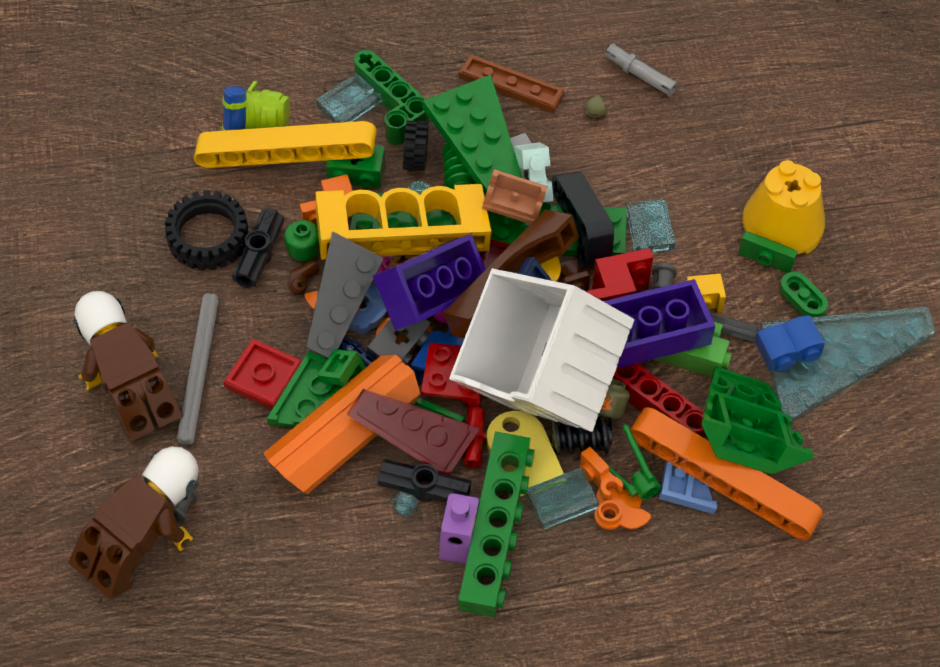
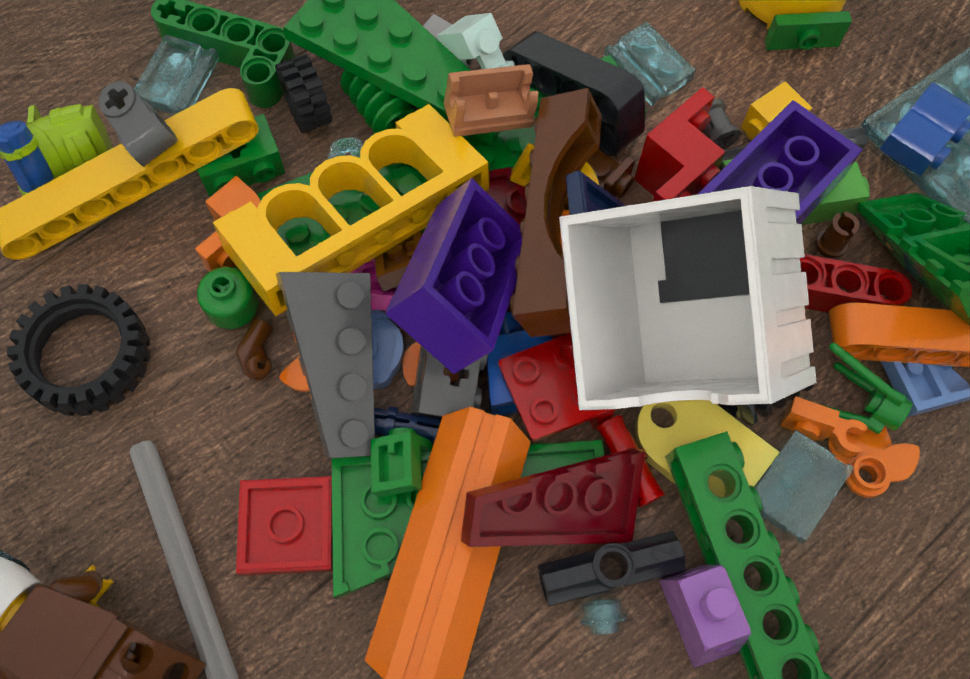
camera: 30 degrees left, 10 degrees up
(255, 258) = (173, 361): black piece -> none
(305, 118) = (135, 122): none -> dark grey piece
(688, 382) = (835, 239): none -> reddish brown pin
(806, 295) = (881, 64): green plate -> none

